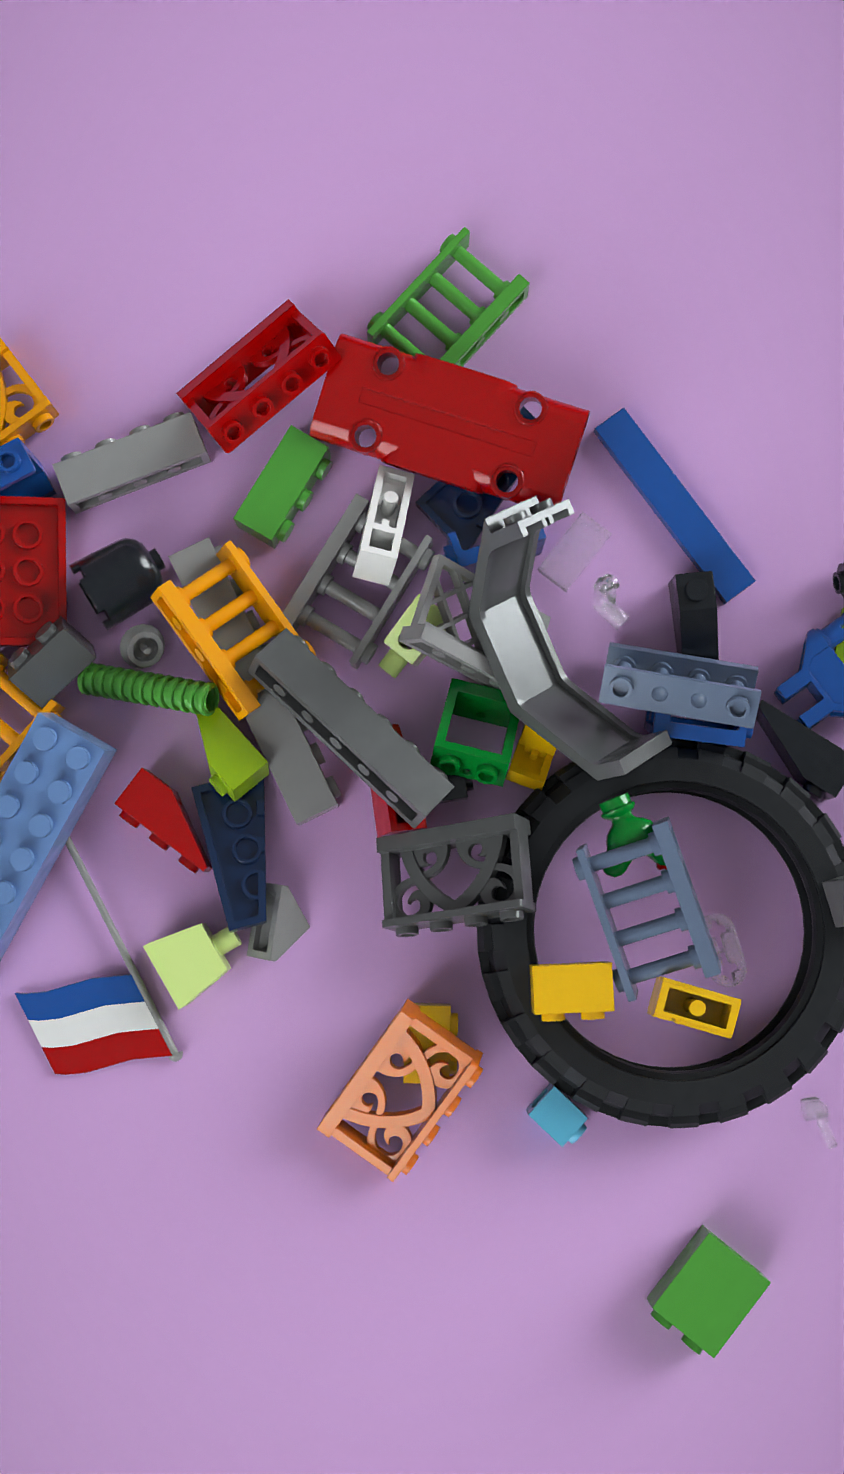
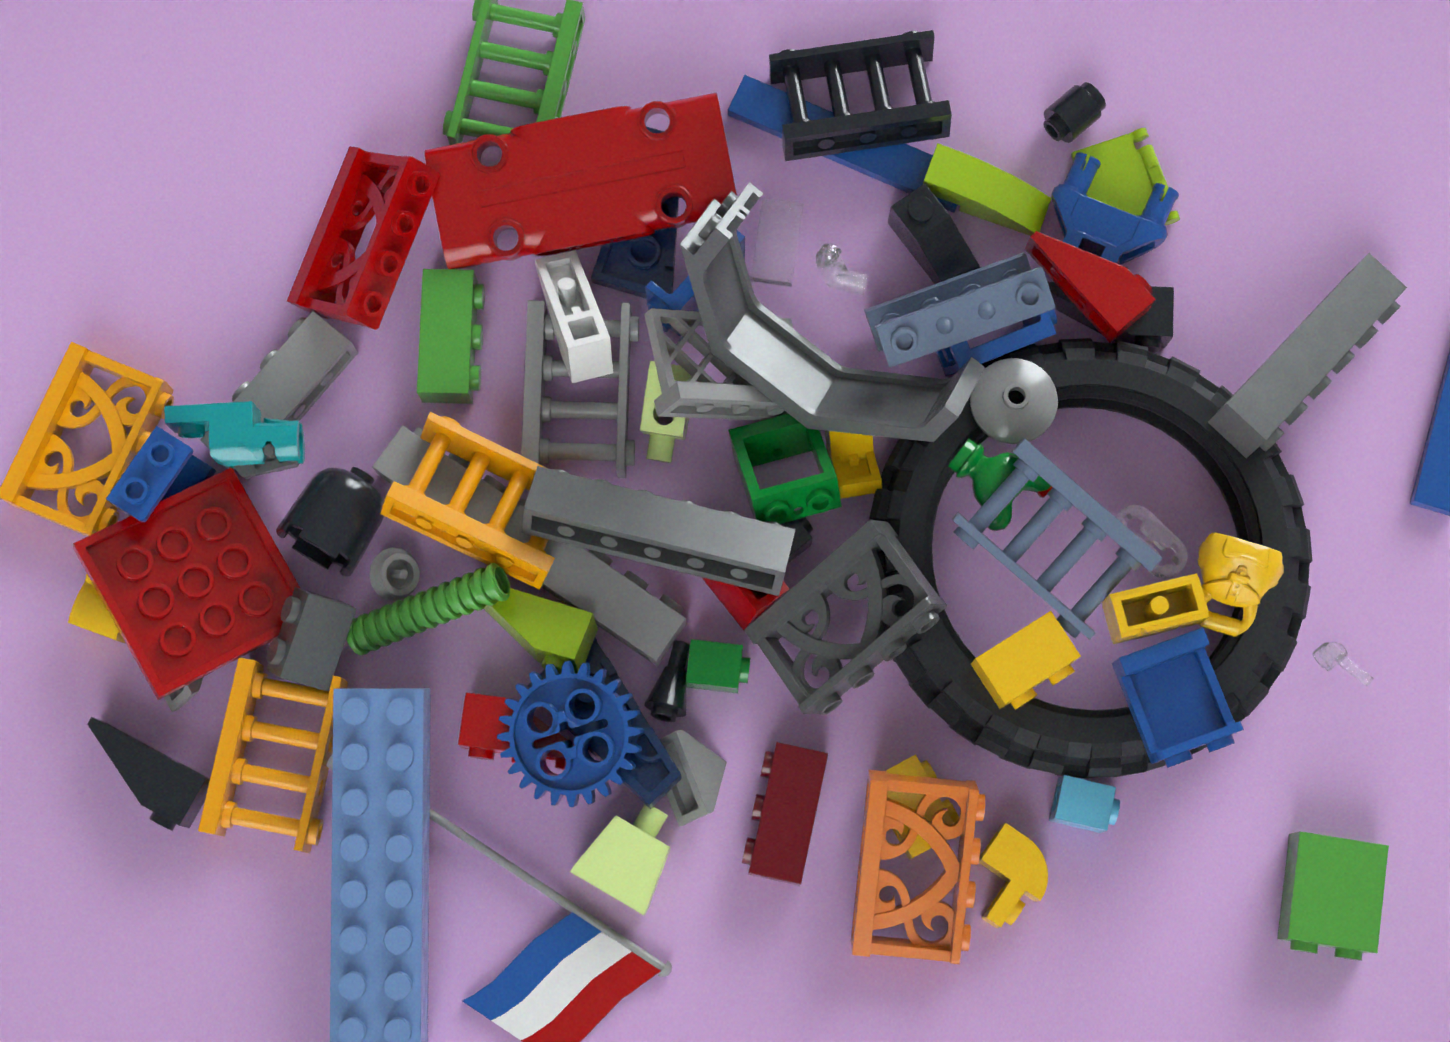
camera: 30 degrees left, 5 degrees down
(81, 480) = (239, 437): none -> teal plate
(192, 877) = (581, 771): none -> blue gear
(295, 852) = (669, 693): none -> black cone
(329, 993) = (785, 813): none -> dark red brick
(341, 853) = (716, 666): none -> green brick
(481, 1140) = (1020, 866): none -> yellow brick
(663, 790) = (1011, 421): none -> light grey dish
(670, 1084) = (1176, 698): none -> blue panel
(692, 504) = (864, 130): none -> black fence
(757, 602) = (986, 191): none -> lime slope
(773, 1016) = (1237, 576): none -> yellow piece
(799, 729) = (1098, 287): none -> red slope

